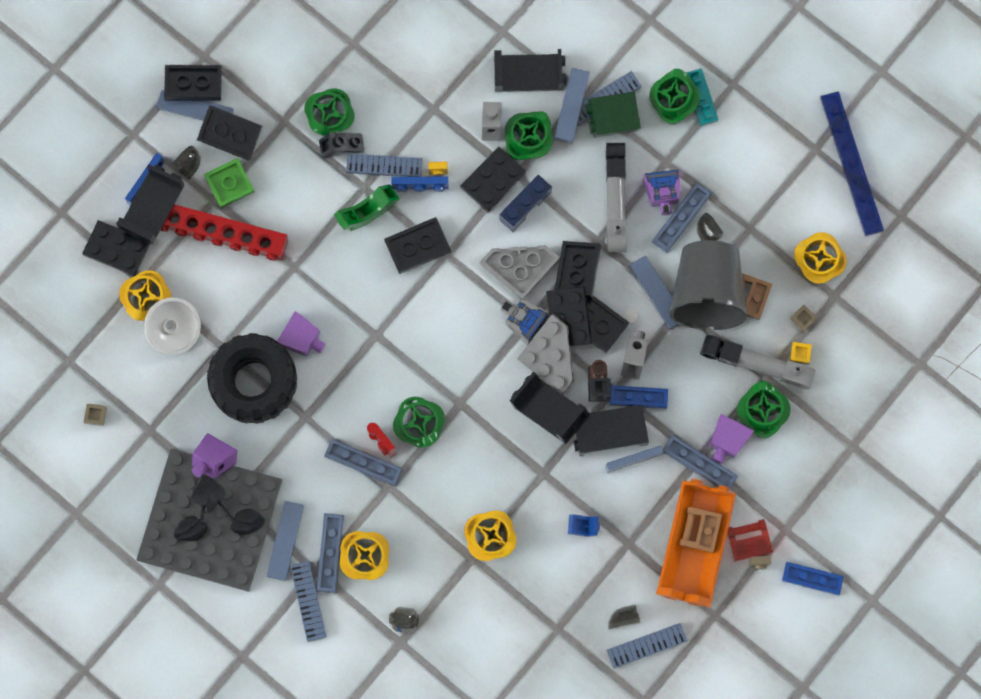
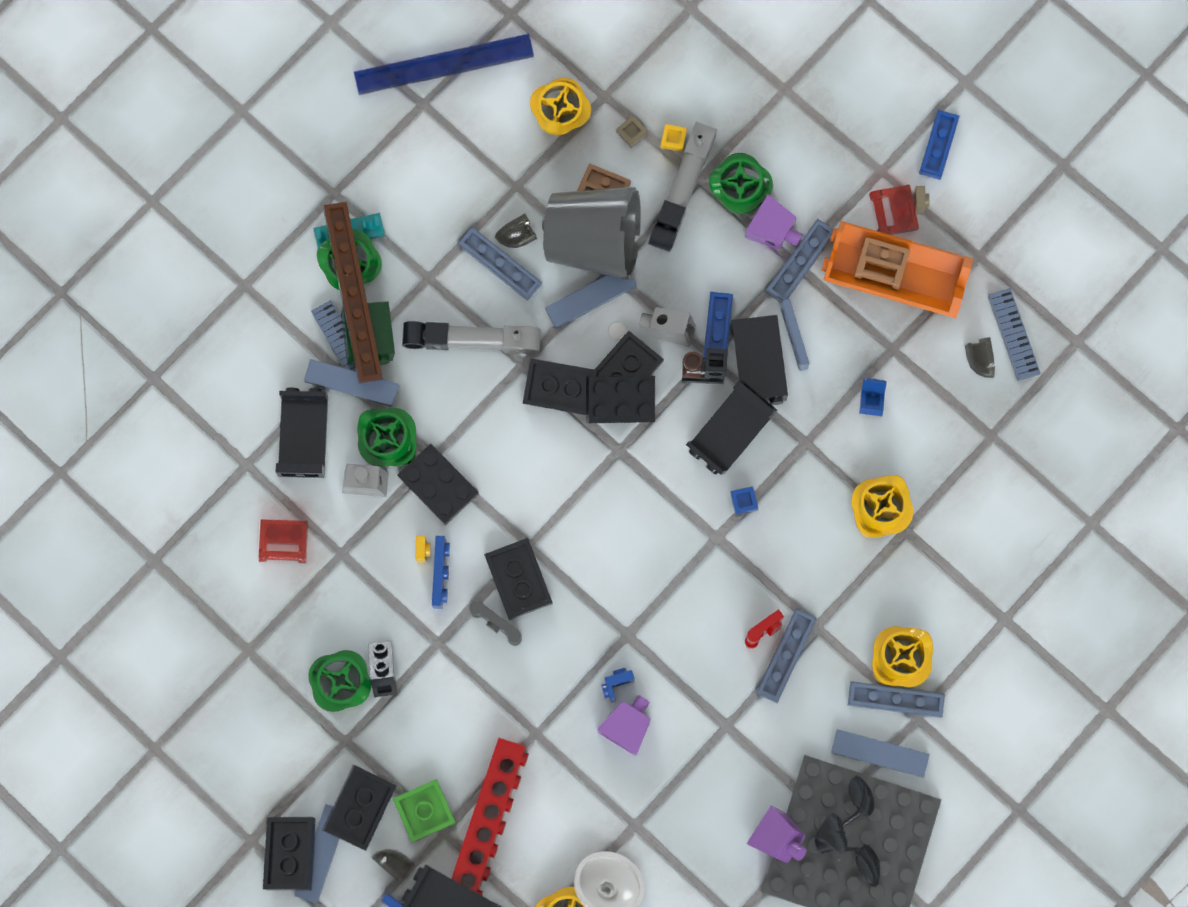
camera: 85 degrees left, 0 degrees up
(239, 353) = (689, 748): black tyre -> none
(308, 601) = (954, 727): sand blue tile -> none
(340, 328) = (619, 678): none -> blue bracket
(368, 210) = (469, 636): green arch -> none
(380, 229) = (495, 622): none -> dark grey plate
(384, 165) = (412, 616): sand blue tile -> none
(404, 619) = (980, 612): clear smoke head -> none
(426, 440) = (762, 575): green piece -> none
(446, 62) = (283, 533): none -> clear red plate
(490, 422) = (744, 500): none -> blue plate
(520, 267) = (552, 456): light grey plate -> none
(524, 319) = (619, 454): torso -> none
(526, 200) = (478, 449): dark blue arch -> none
(550, 355) = (665, 424): light grey plate -> none
(643, 96) = (352, 292): none -> reddish brown plate
(663, 189) = (465, 281): torso -> none

